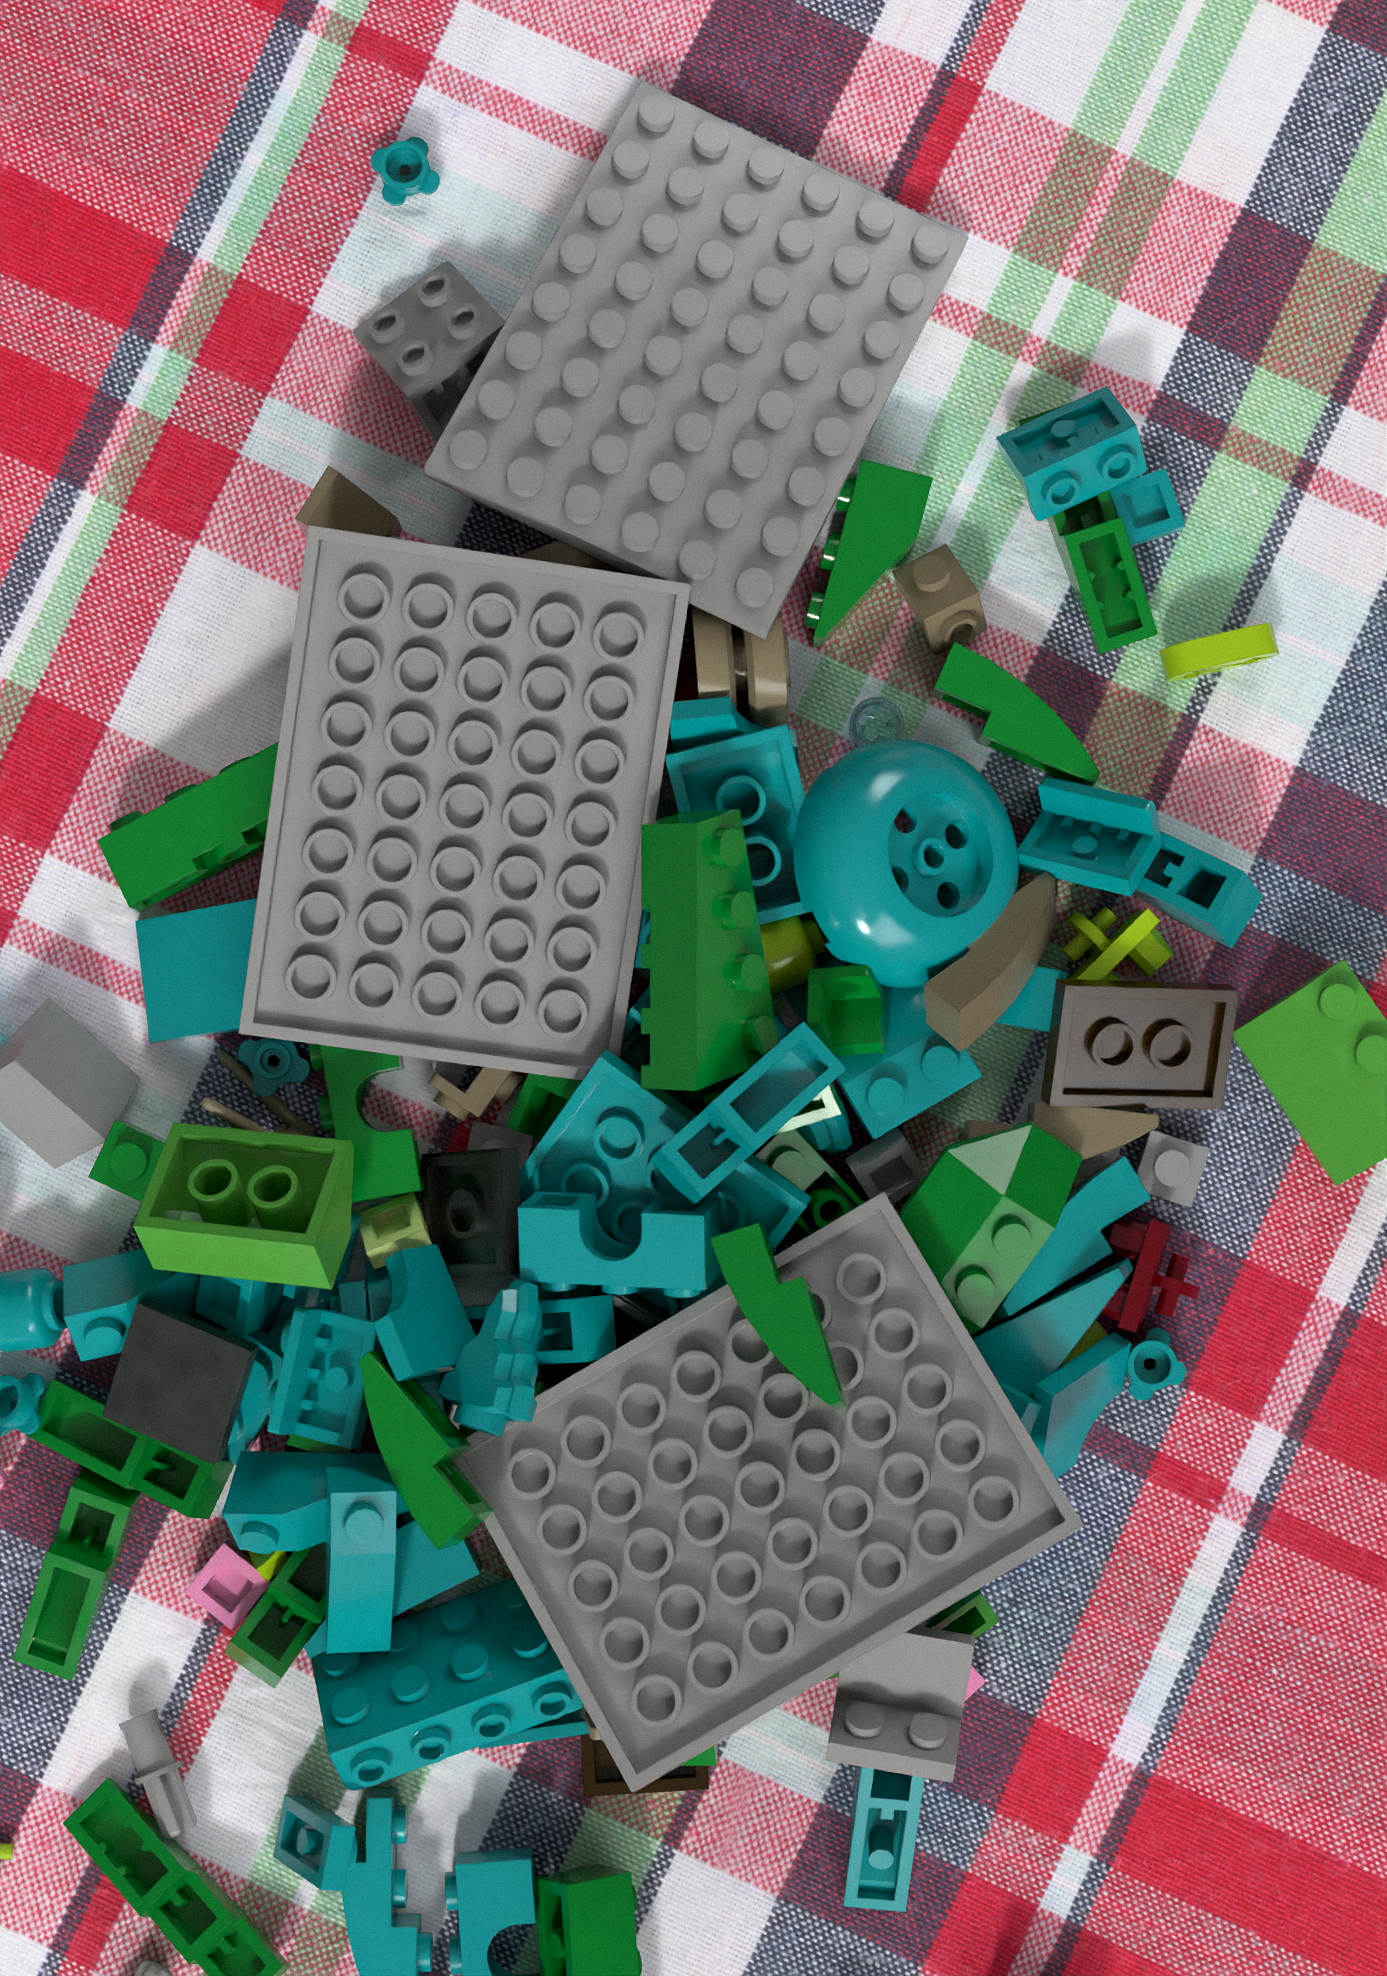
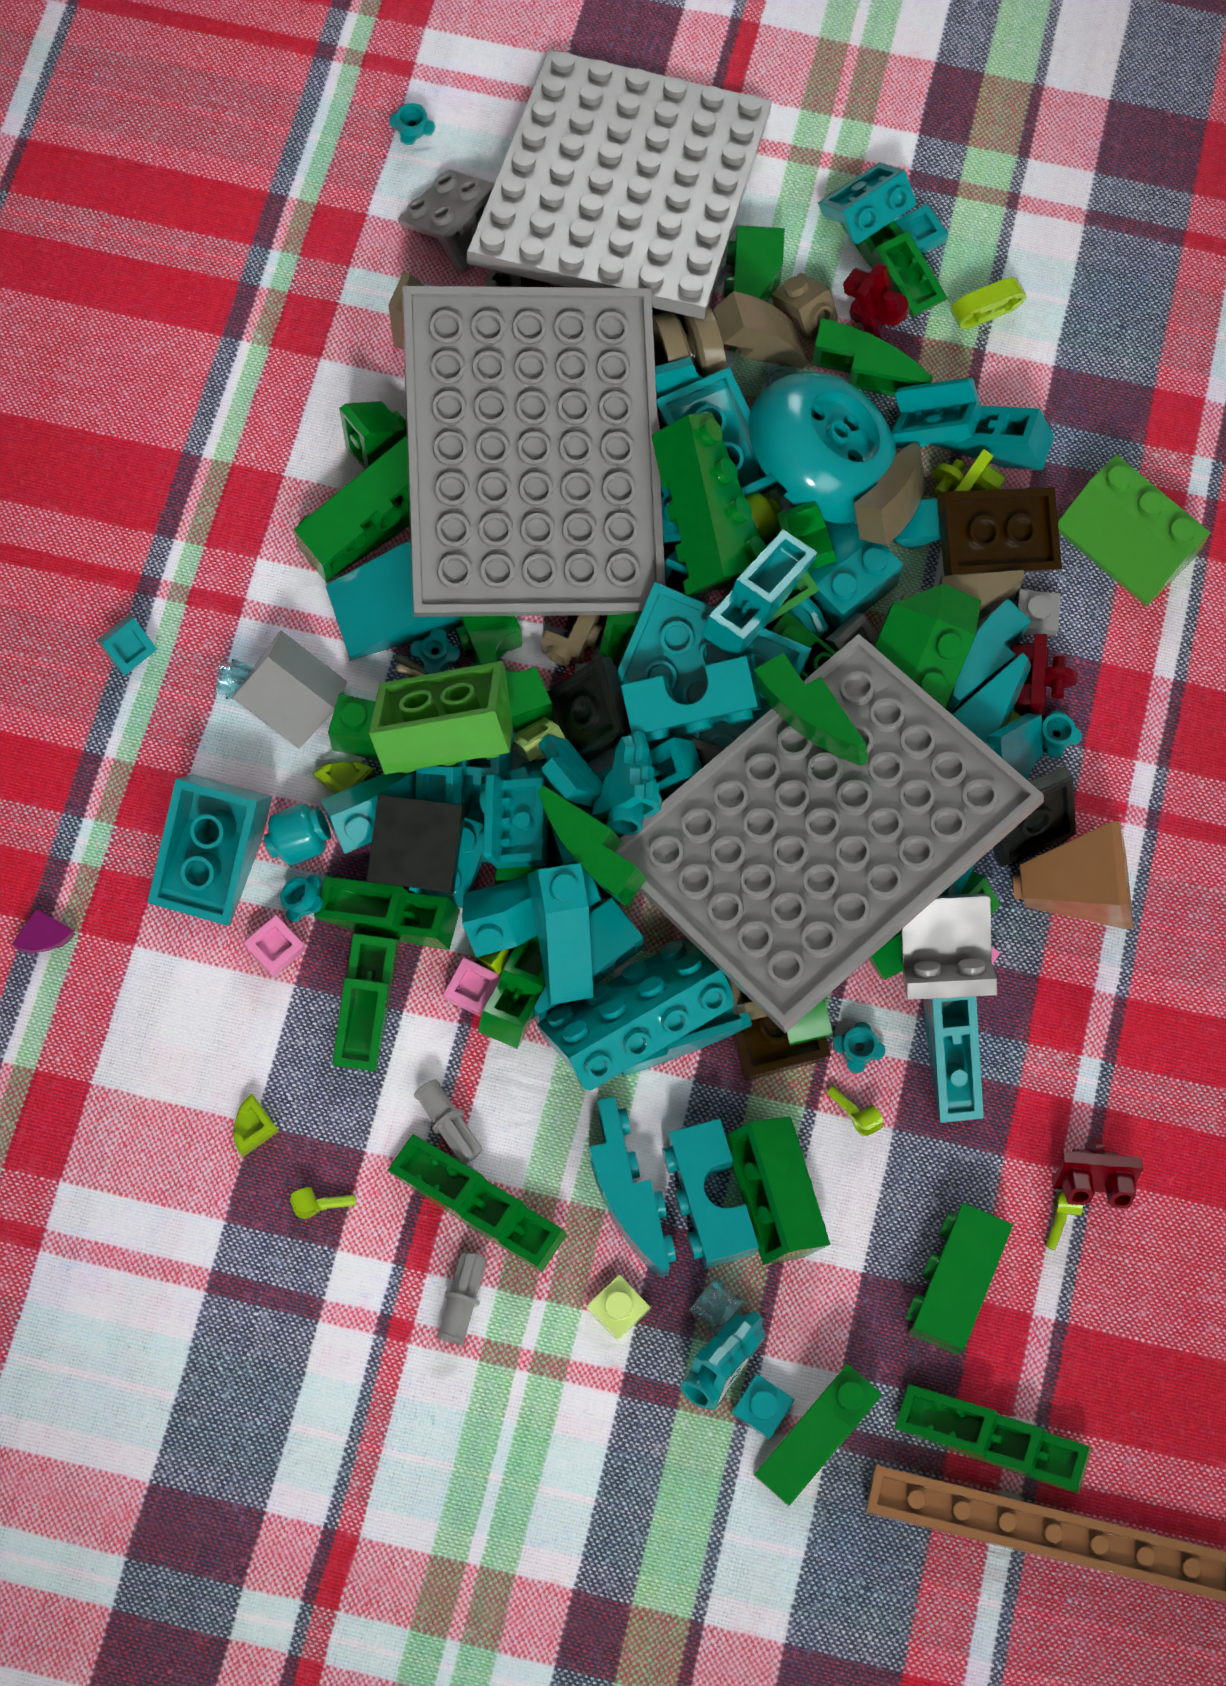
camera: 10 degrees left, 15 degrees down
(104, 1227) = (342, 775): none -> lime tile
(243, 699) = (371, 430): none -> green slope
(315, 1843) = (568, 1136): teal plate -> none
(738, 1884) = (865, 1121): none -> lime hand
(749, 1794) = (861, 1035): none -> teal plate
(853, 656) = (759, 330): none -> dark tan slope
(1045, 628) = (874, 299): none -> dark red hips
(1104, 1494) = (1047, 824): none -> pearl dark grey tile
(1127, 1607) = (1081, 879): none -> medium nougat slope

